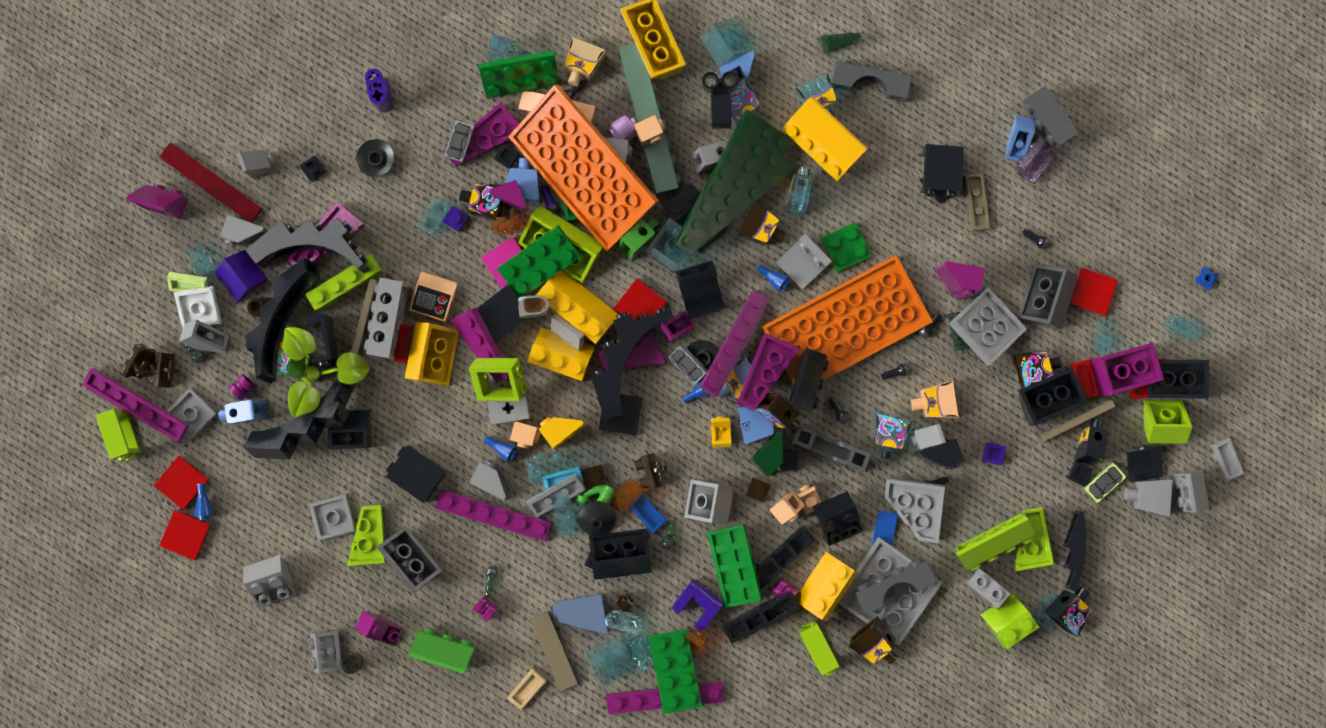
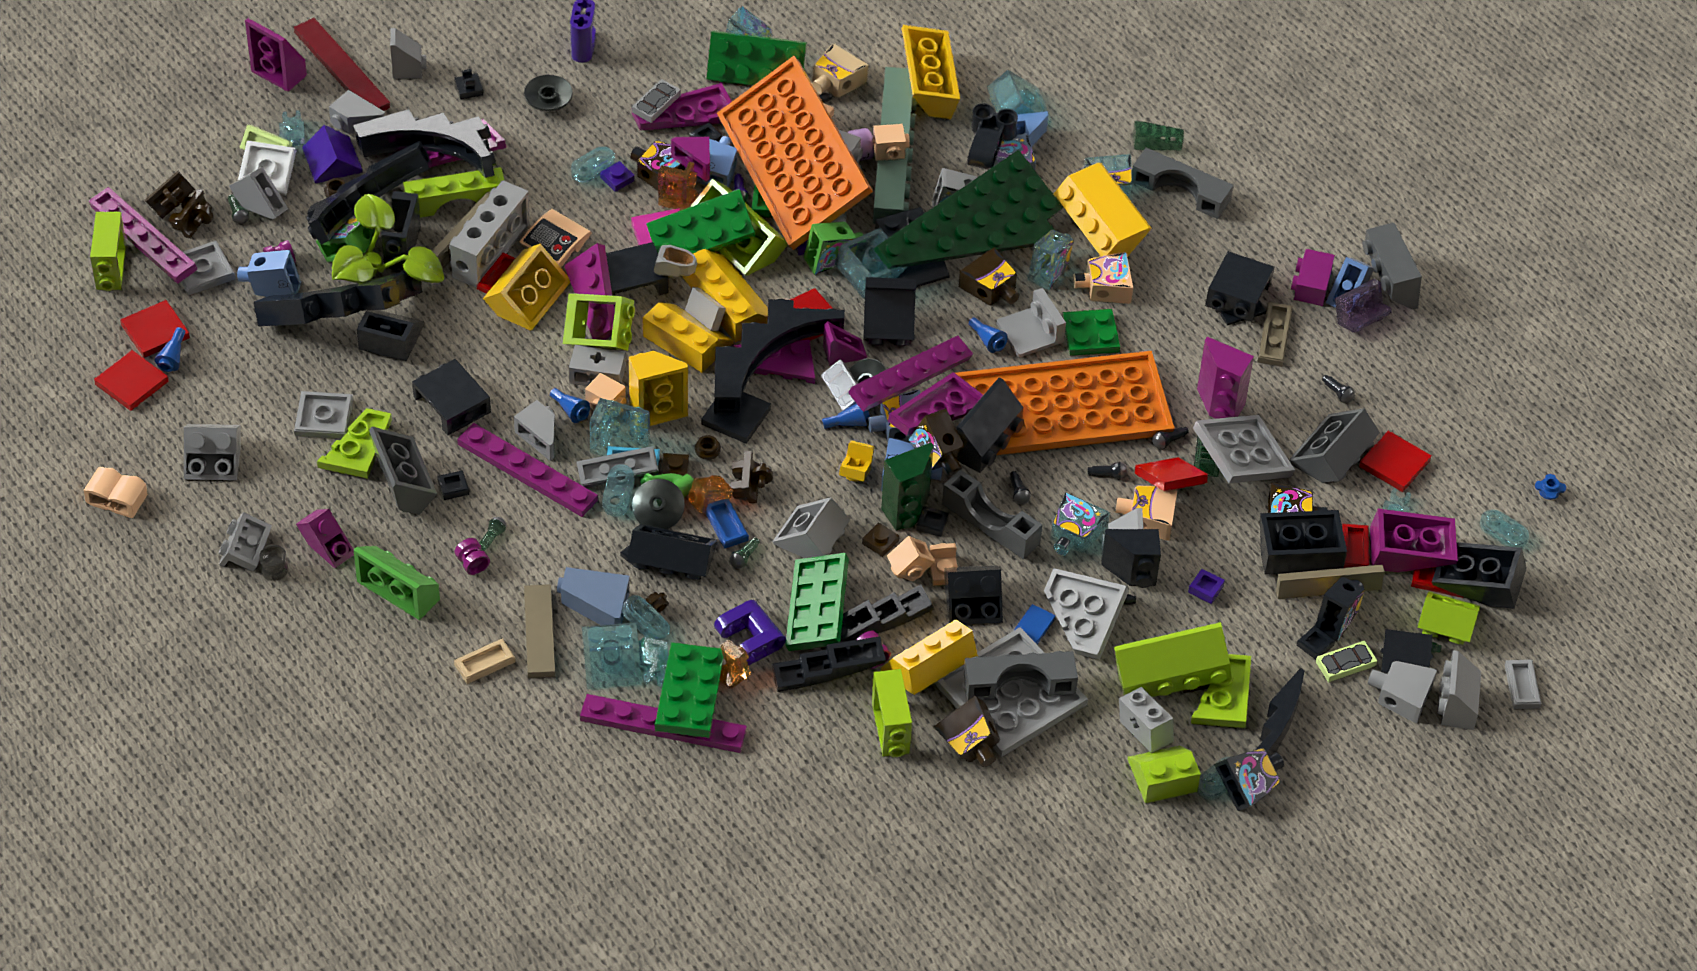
camera: 15 degrees right, 35 degrees down
(218, 641) = (115, 492): none -> light nougat brick
(447, 547) = (453, 485): none -> black tile
(607, 447) = (704, 442): none -> dark brown plate
(844, 196) = (1107, 279): none -> light nougat torso
(943, 368) = (1171, 474): none -> red tile
(991, 141) = (1313, 277): none -> magenta brick

